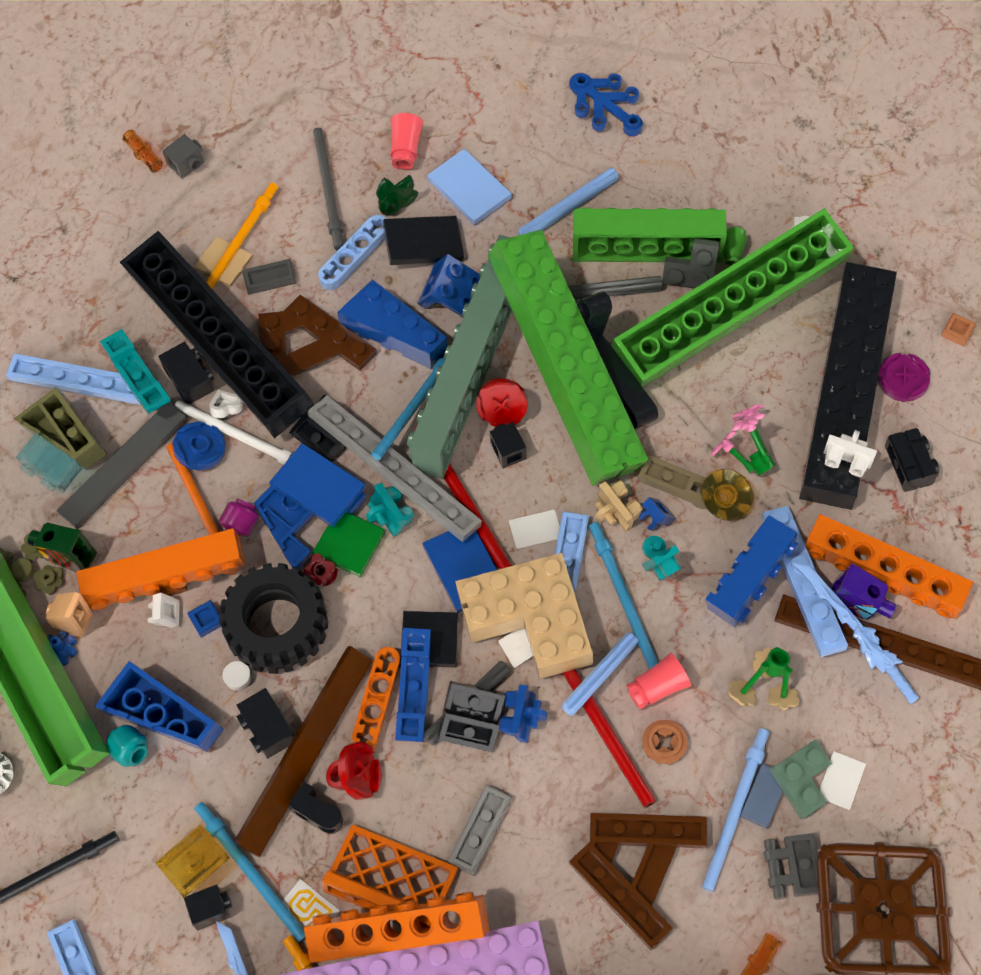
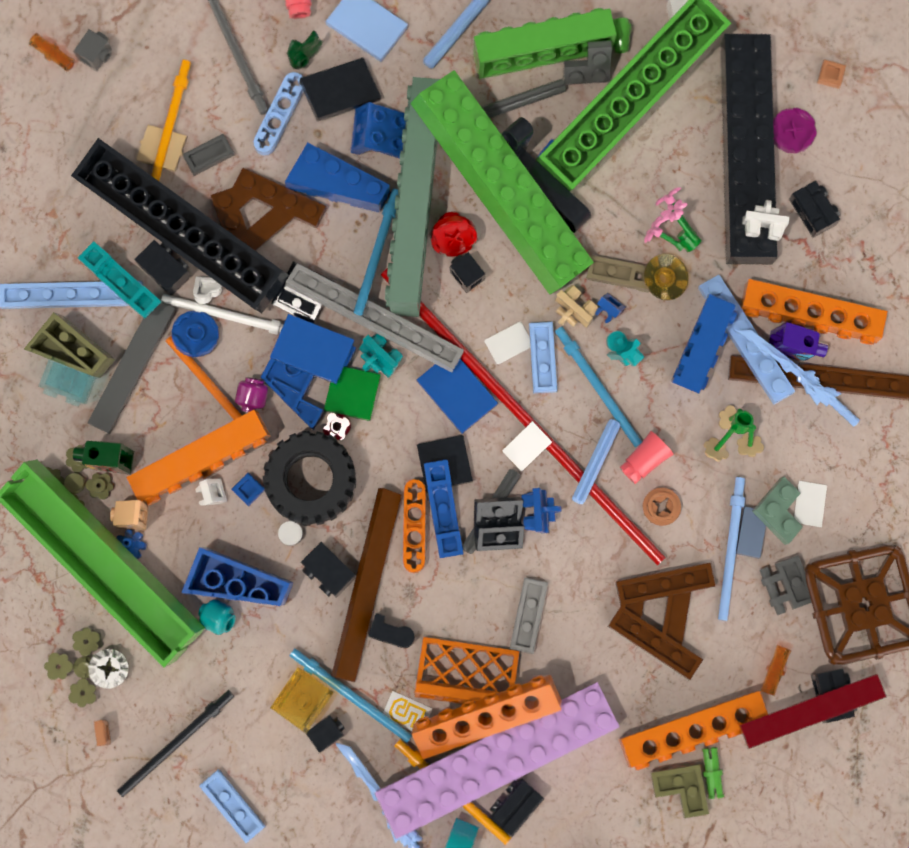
camera: 20 degrees left, 15 degrees up
(357, 770) = (418, 593): red tile -> none
(530, 597) = (530, 411): tan piece -> none

